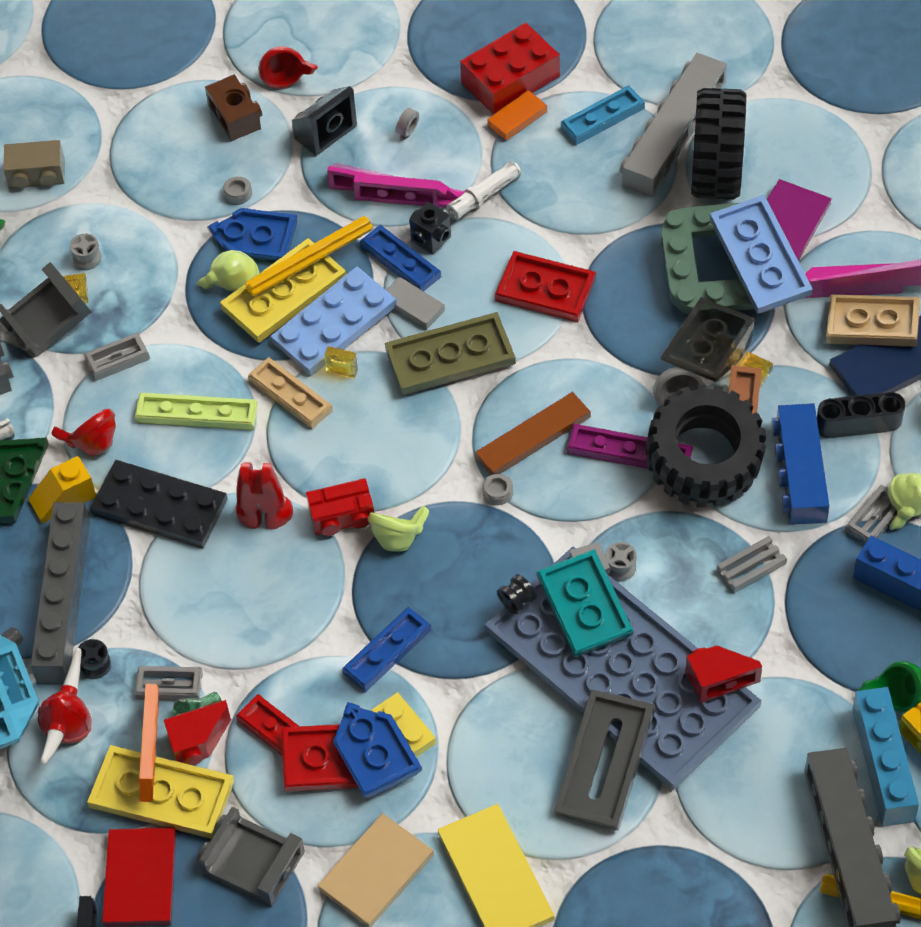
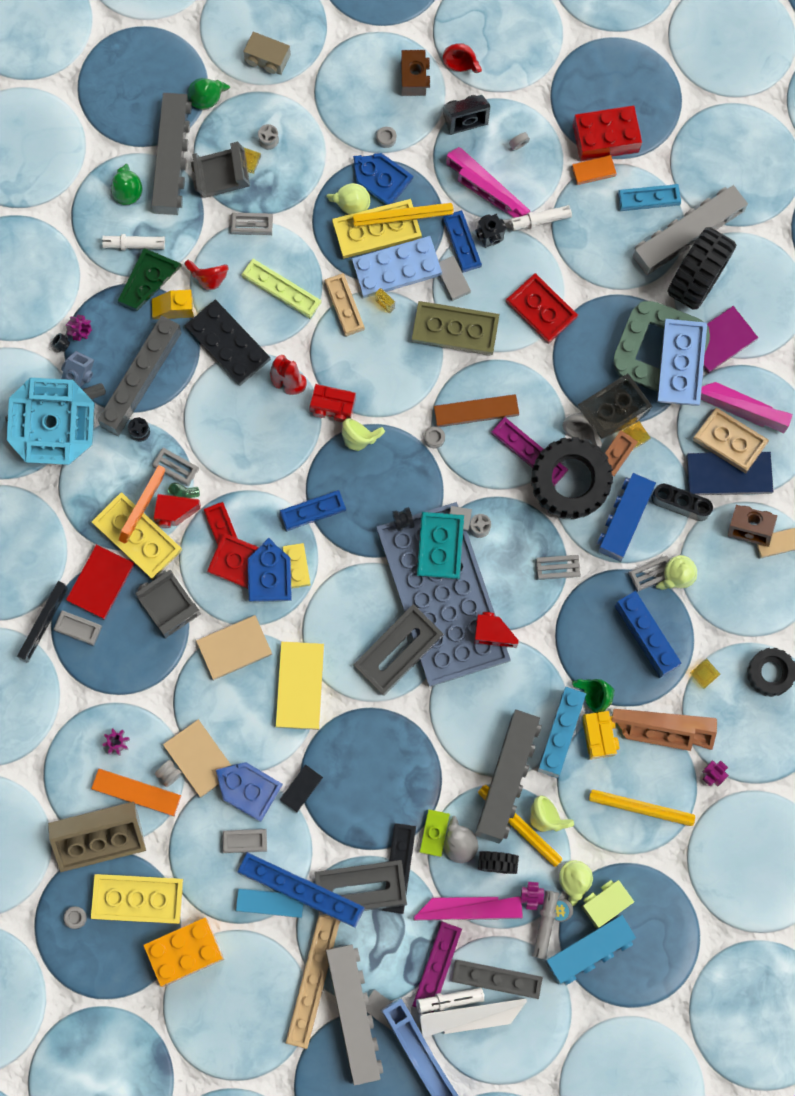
camera: 20 degrees right, 20 degrees up
(64, 715) = (104, 458): red helmet -> none

